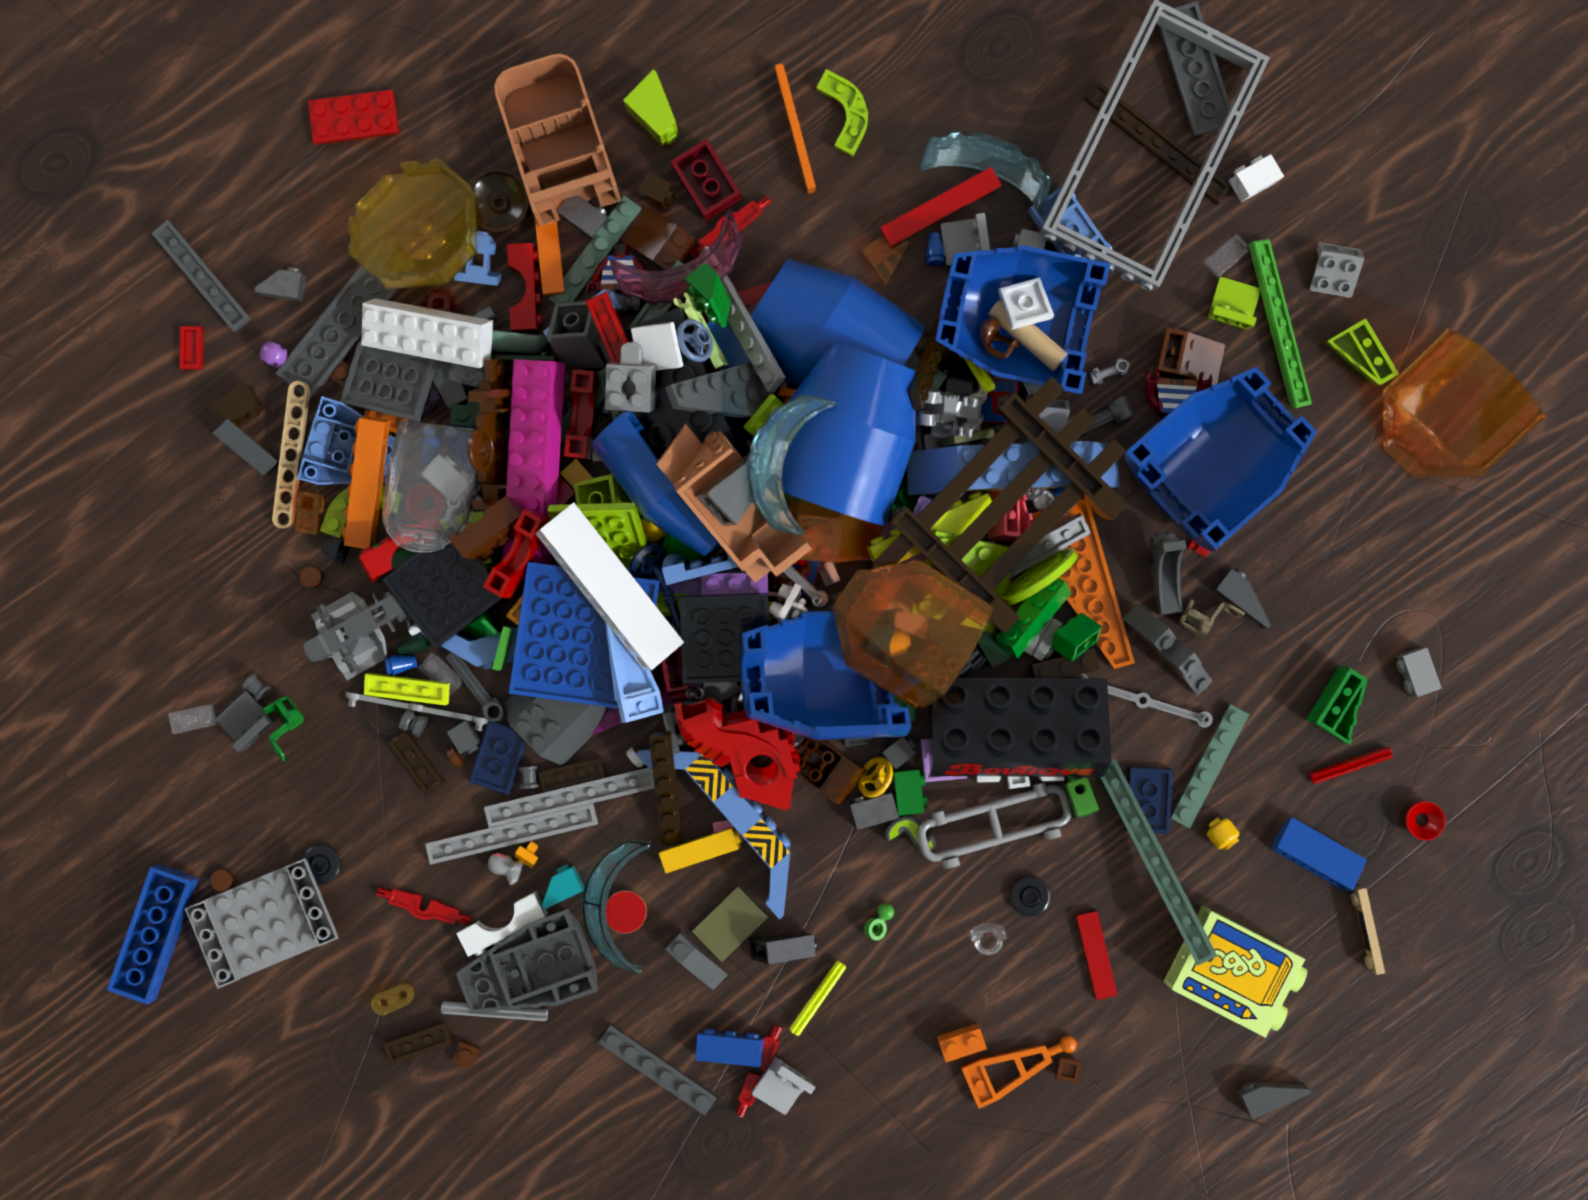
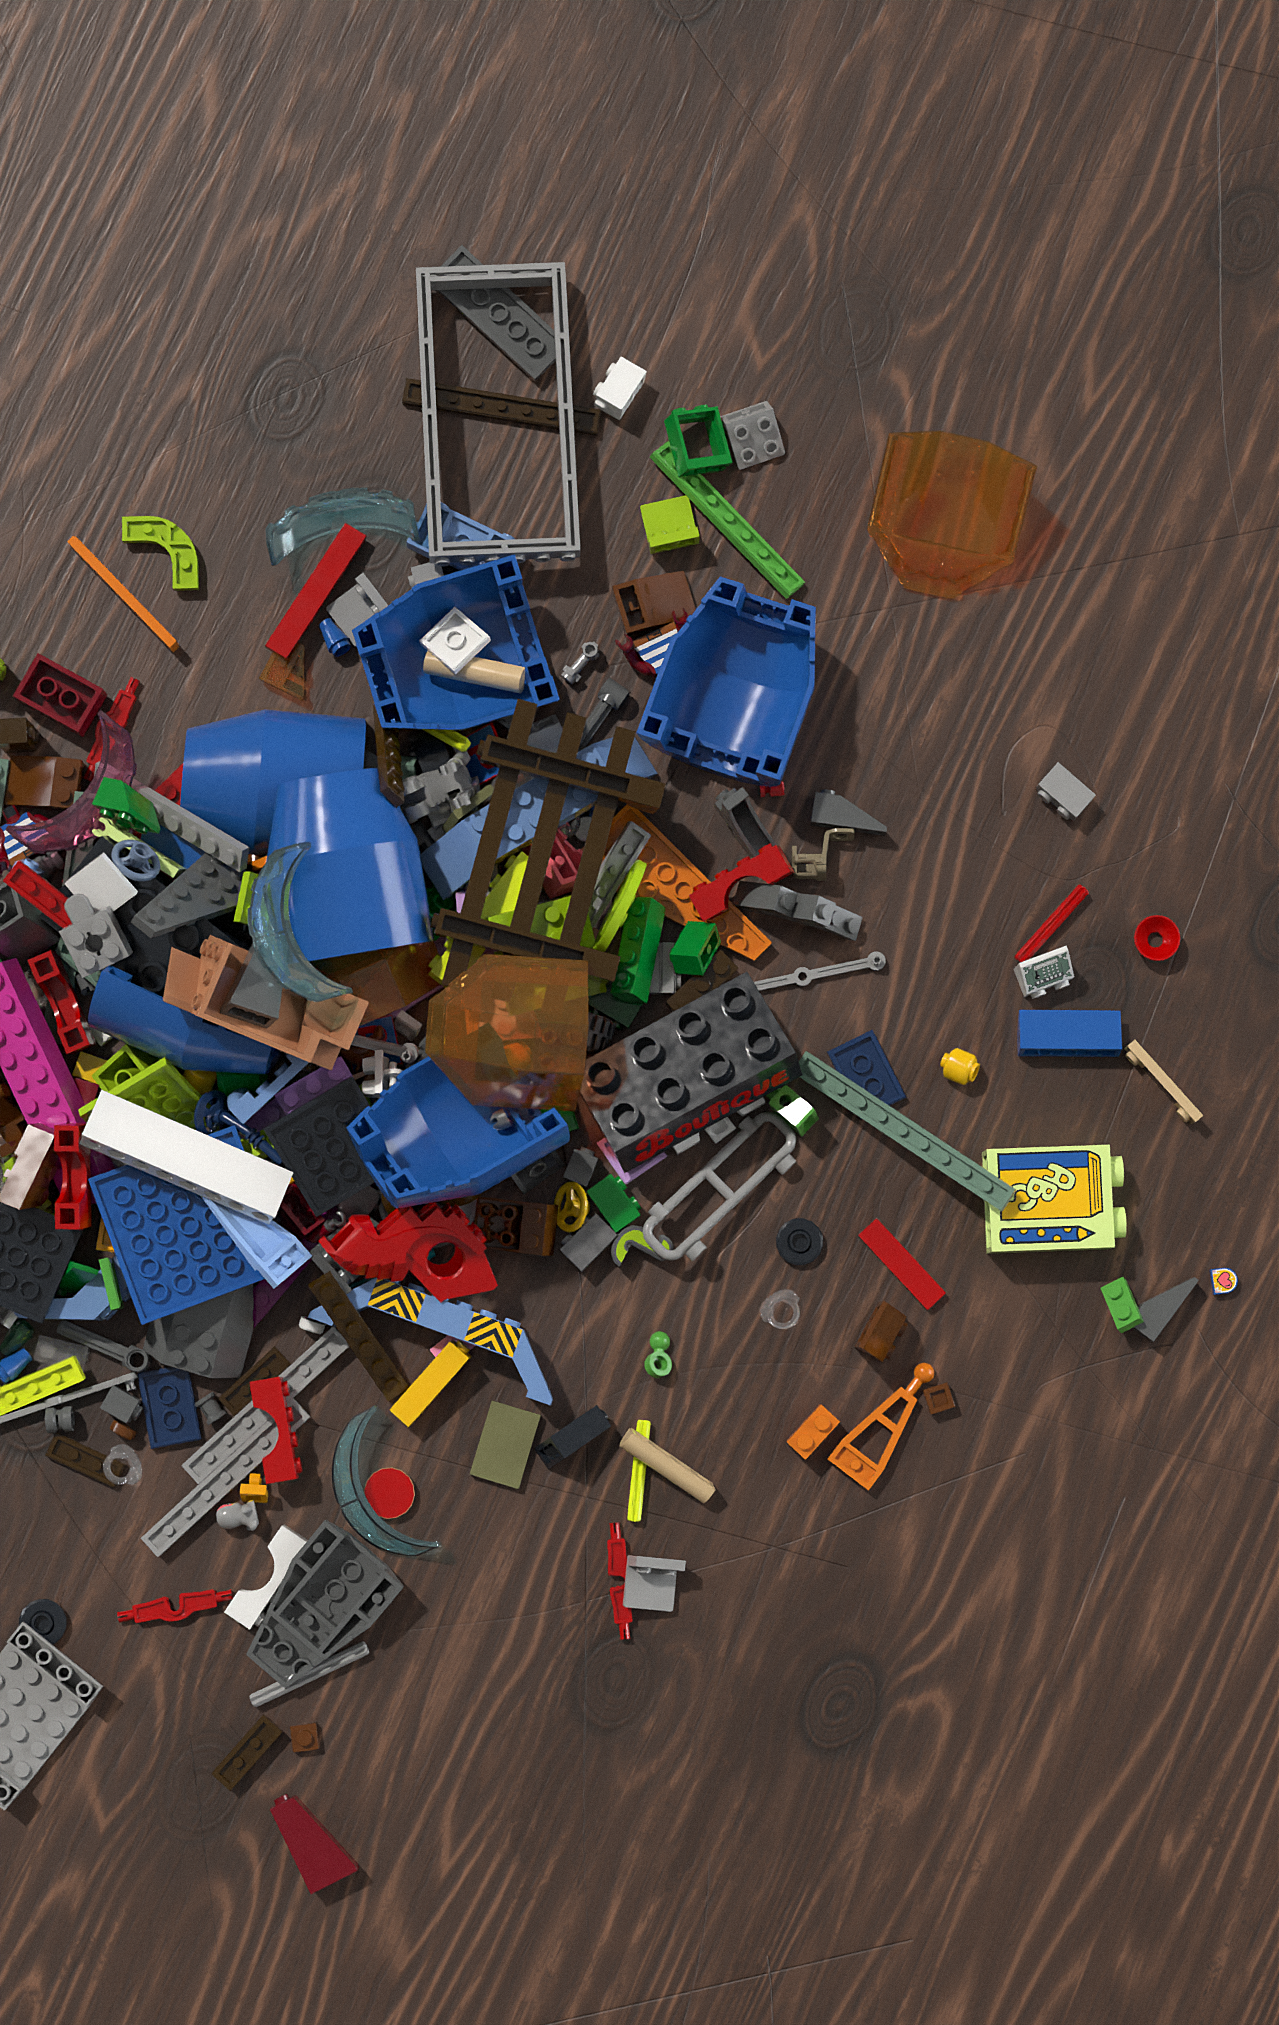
camera: 35 degrees left, 5 degrees down
(393, 998) = (195, 1720): clear yellow plate -> none
(428, 1140) = (312, 1846): none -> dark red slope
(448, 791) = (123, 1452): none -> clear piece
(563, 886) = (308, 1502): teal slope -> none
(575, 794) = (281, 1461): none -> red arch
(658, 1069) = (513, 1639): dark grey plate -> none
(696, 960) = (491, 1501): dark grey slope -> none
(730, 1048) = (575, 1571): blue brick -> none
(841, 1007) = (667, 1465): none -> tan brick
(861, 686) = (501, 1117): none -> dark grey hinge
(989, 332) = (436, 689): reddish brown piece -> none
(1053, 997) = (881, 1331): none -> reddish brown slope
(1167, 606) = (713, 898): none -> red arch
(1209, 765) = (908, 1005): sand green plate -> none
(1227, 255) = (635, 481): clear tile -> none
(1244, 1078) = (1122, 1304): none -> bright green plate
(1307, 257) = (721, 456): none -> green window
(1326, 799) = (1045, 972): none -> slope
(1327, 1100) = (1223, 1280): none -> tile
(1338, 704) = (1002, 869): green wedge -> none
(1364, 352) = (826, 502): lime wedge -> none

